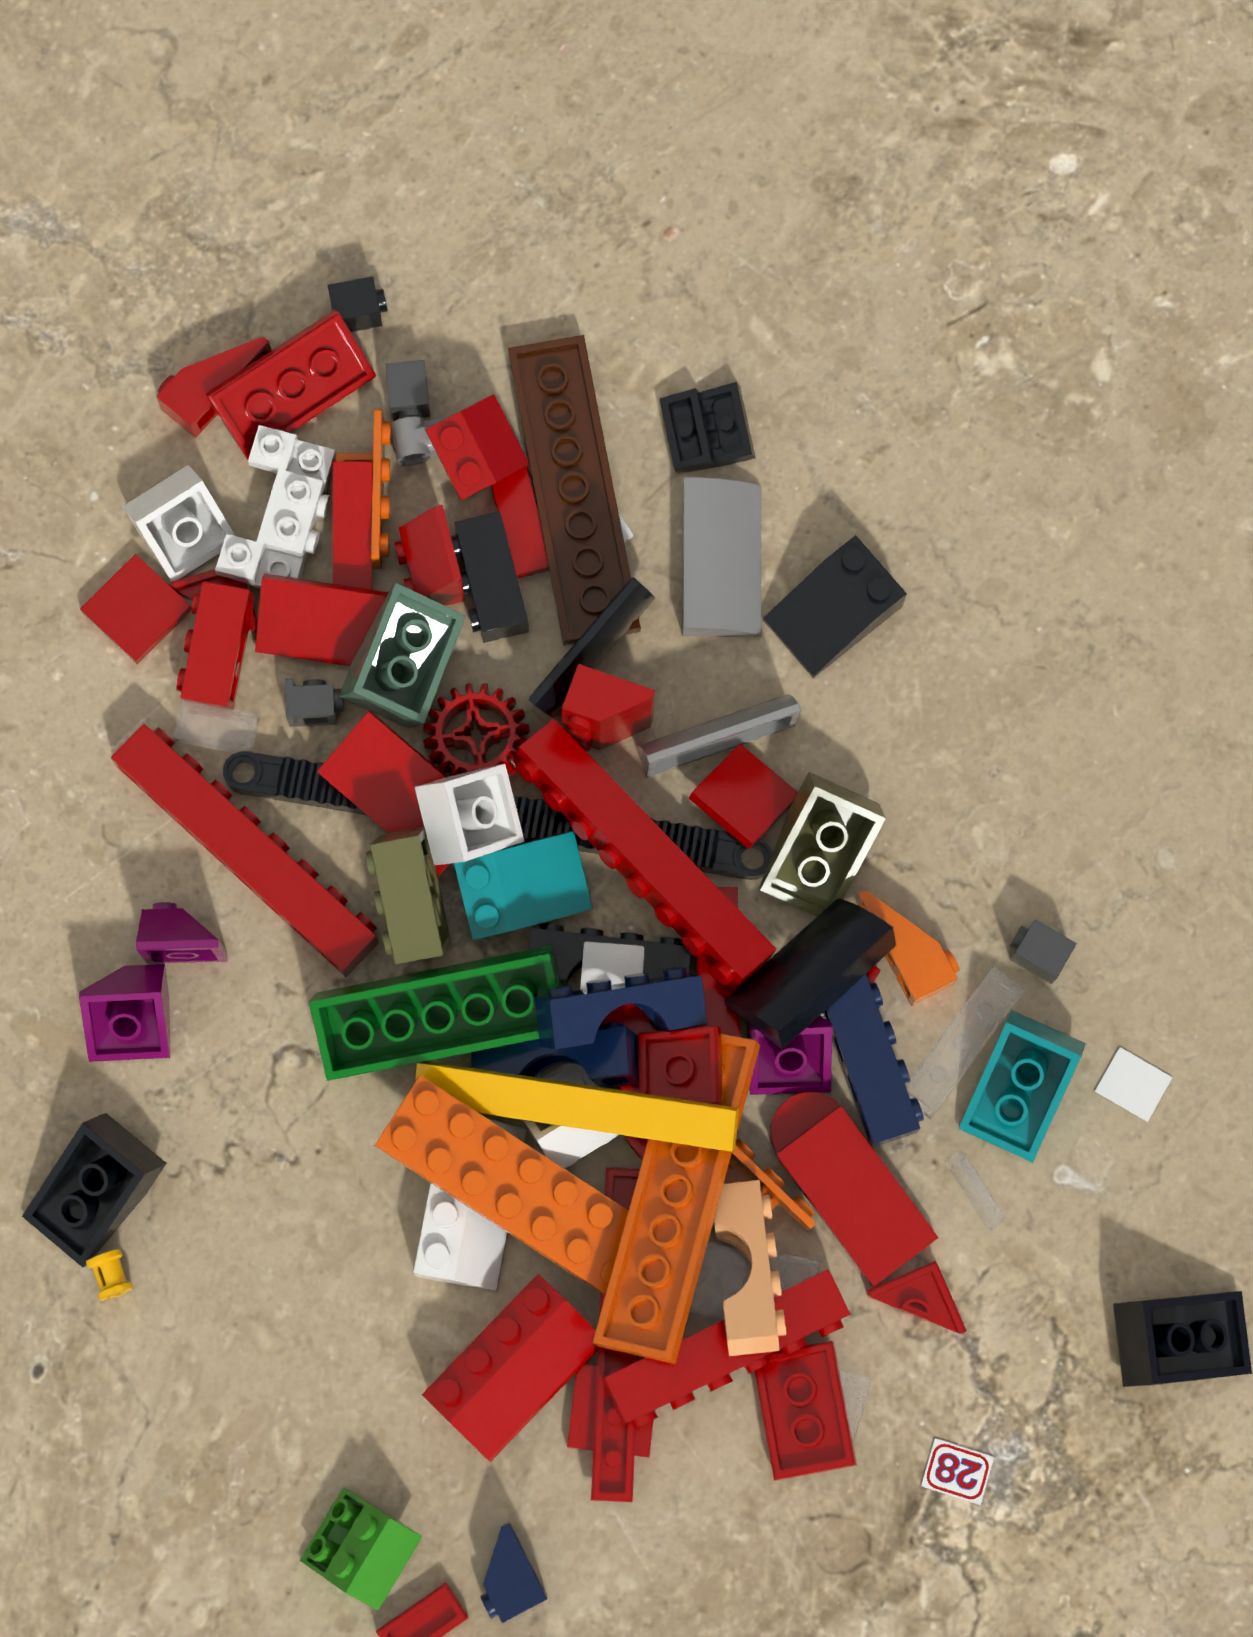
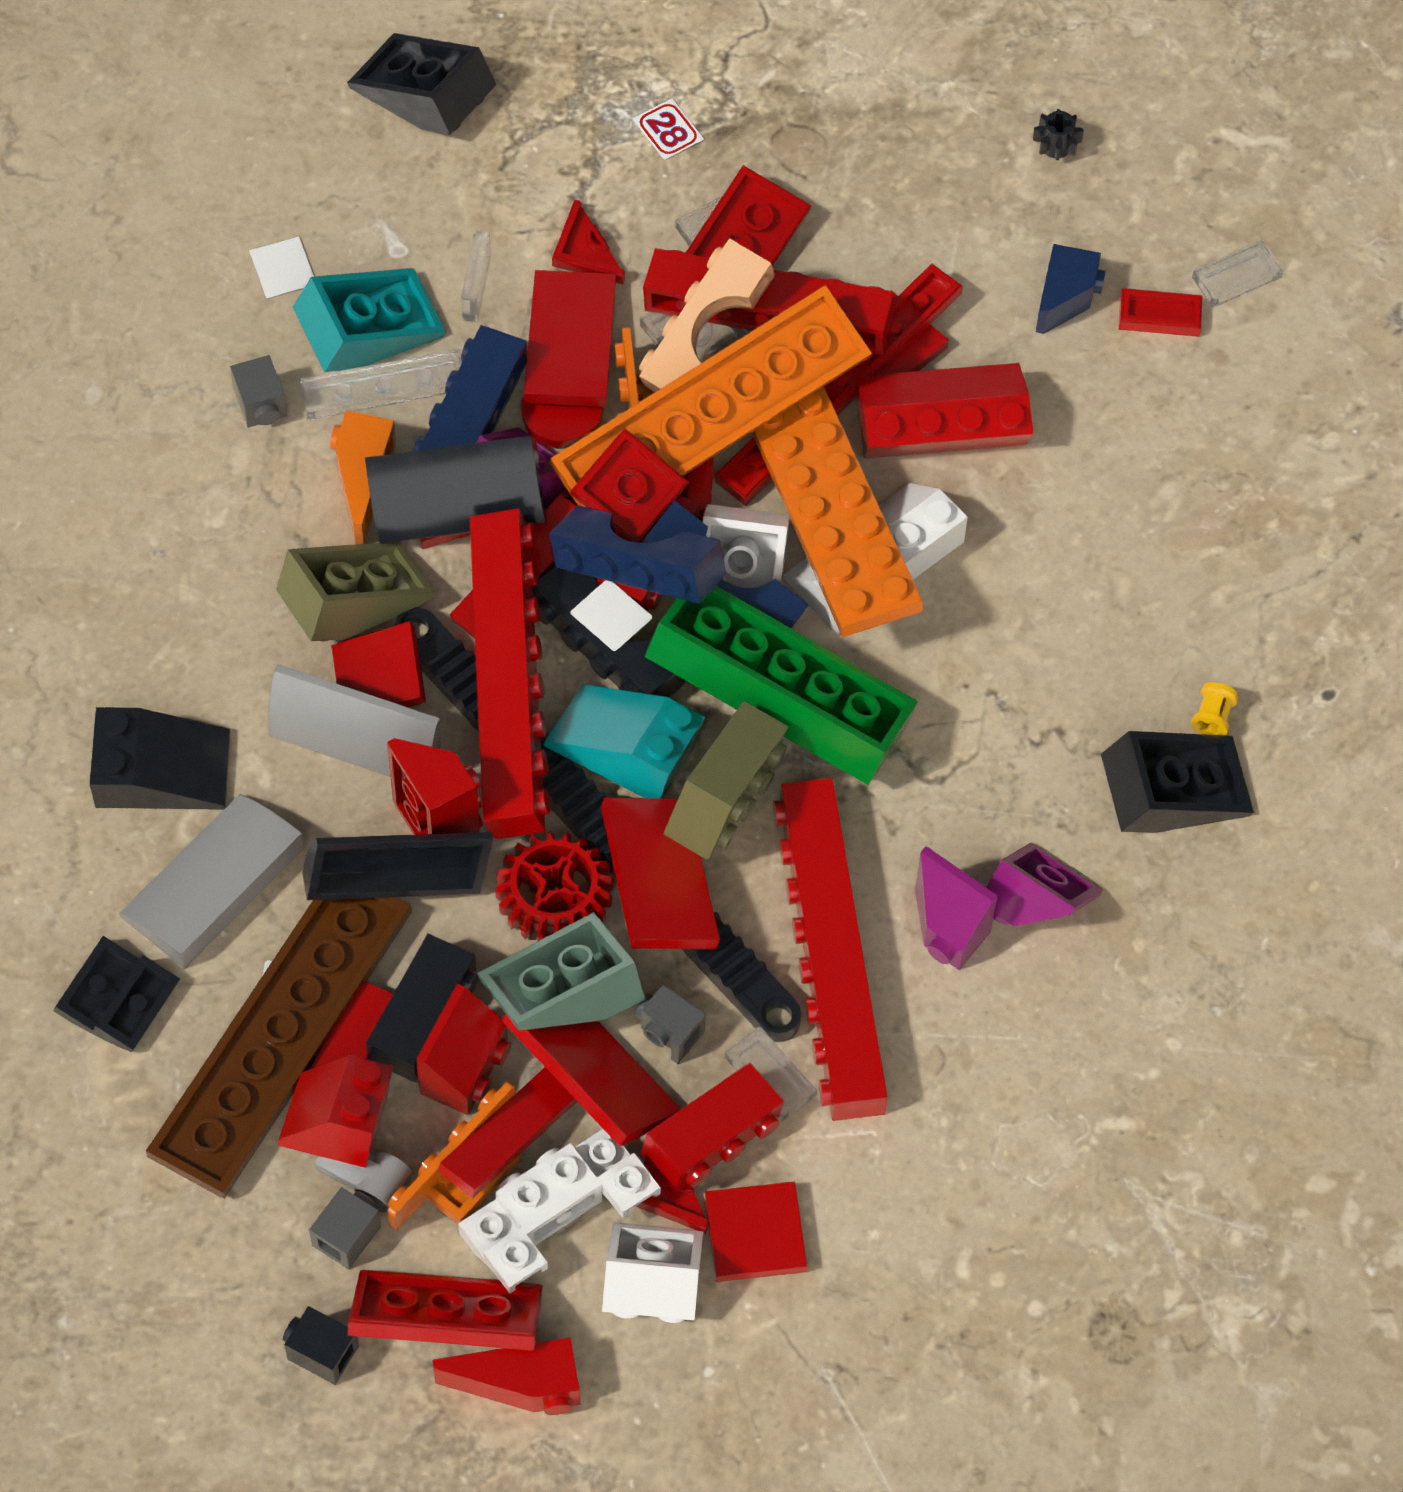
camera: 140 degrees left, 15 degrees down
(360, 1549) = (1168, 385): bright green slope -> none
(469, 815) = (624, 798): white slope -> none
(587, 1106) = (732, 514): yellow tile -> none

